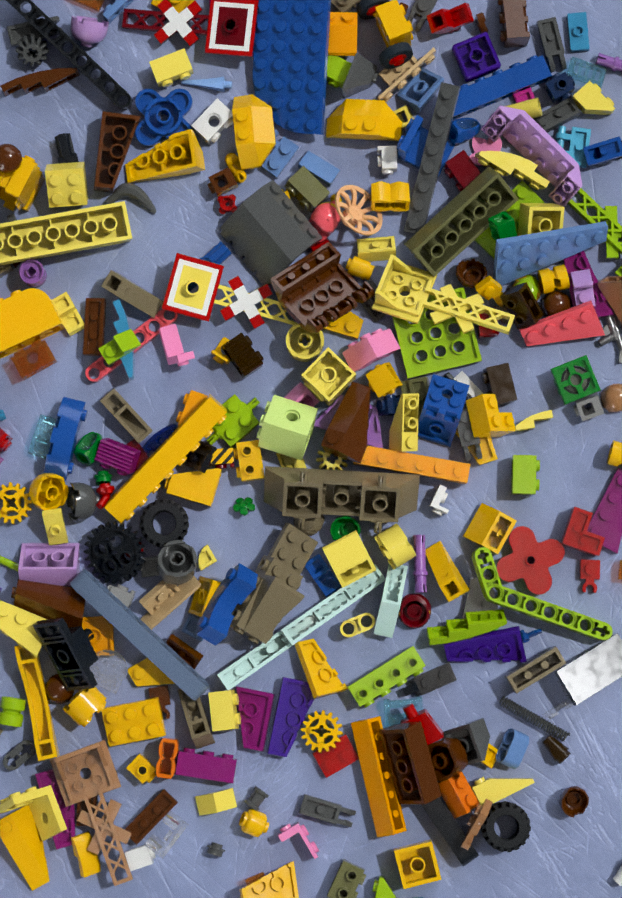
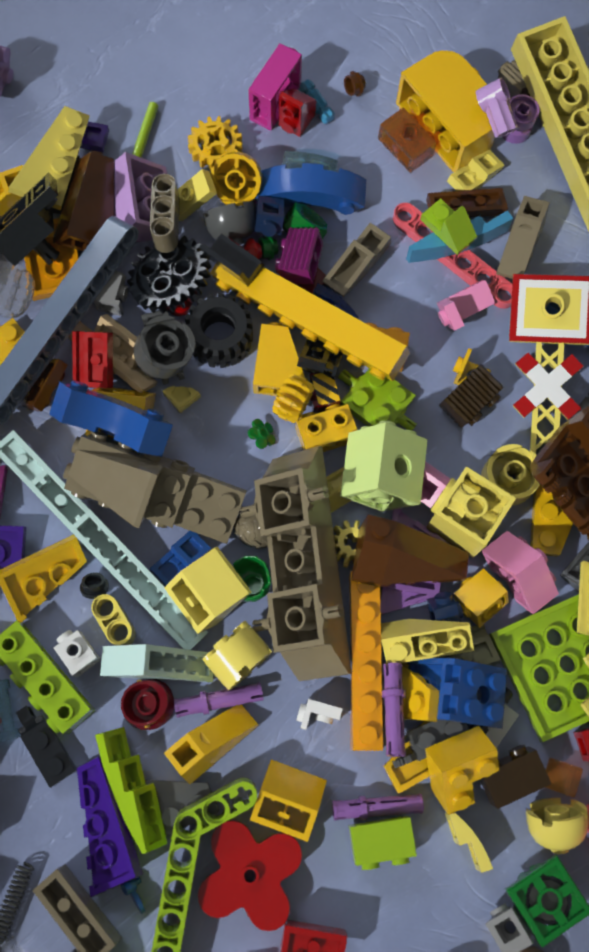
camera: 75 degrees right, 10 degrees down
(33, 294) = (495, 103): none -> lavender piece
(62, 547) = (164, 213): none -> dark tan beam
(84, 472) = (266, 222): none -> dark blue brick
(117, 504) = (233, 259): none -> black panel
(173, 614) = (93, 358): none -> red plate
(228, 479) = (293, 398): none -> yellow gear
(331, 635) = (93, 585): none -> black plate
(381, 650) = (83, 659): none -> white brick
(438, 450) = (394, 717): none -> medium lavender pin
(439, 438) = (420, 699): none -> yellow wing
(503, 473) = (374, 807): none -> medium lavender pin
(505, 352) = (564, 777): none -> clear orange slope
(532, 364) = (557, 824): none -> light yellow cylinder

